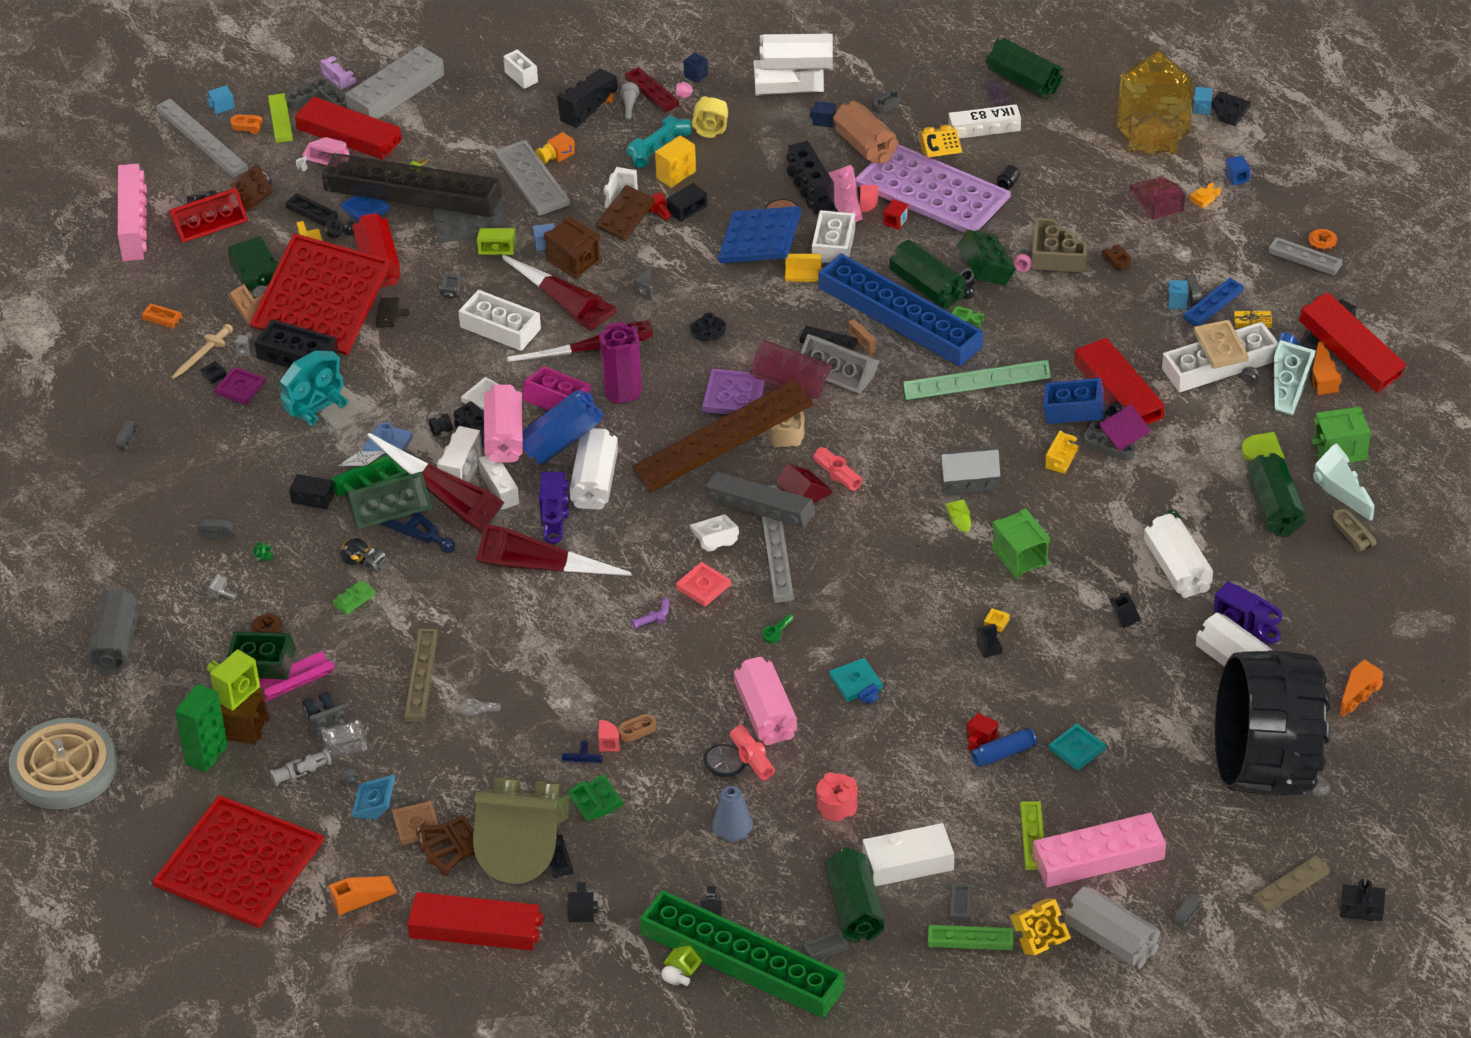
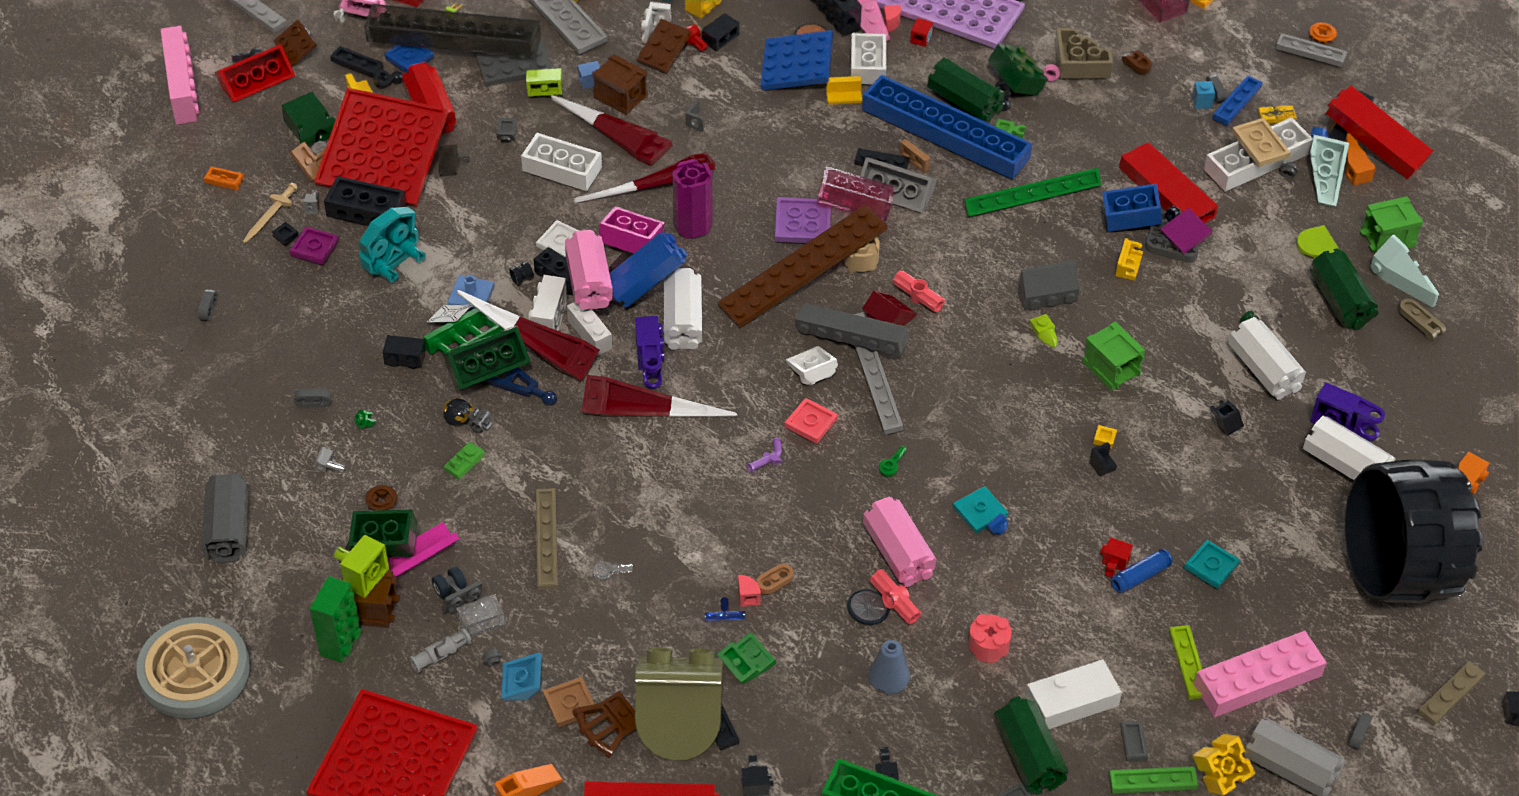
camera: 10 degrees left, 5 degrees up
(708, 328) = (764, 156): black dish -> none

